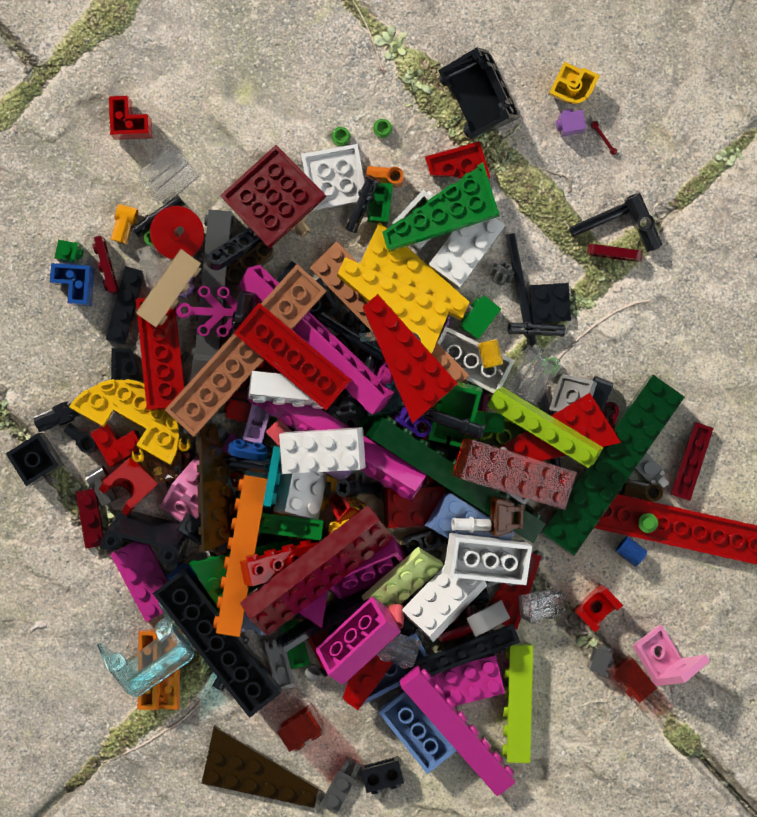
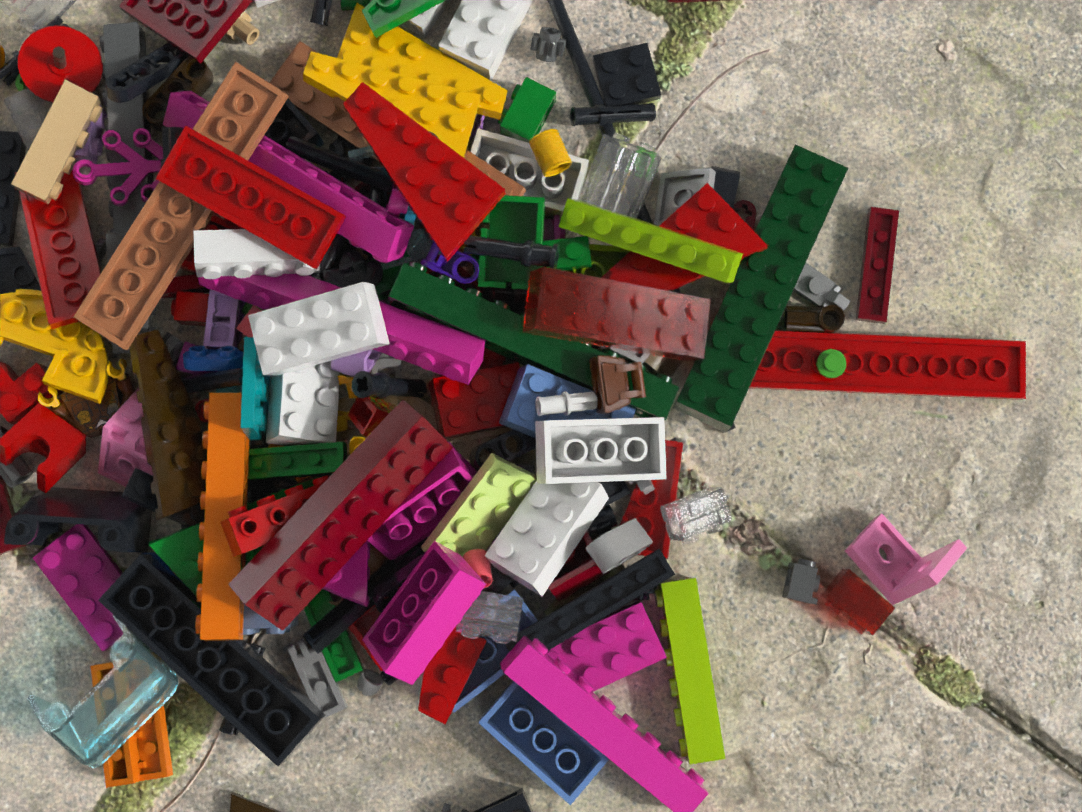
camera: 15 degrees left, 5 degrees down
(300, 728) = (358, 774): clear red brick -> none
(607, 601) = (793, 489): red piece -> none
(631, 551) = (815, 411): blue piece -> none

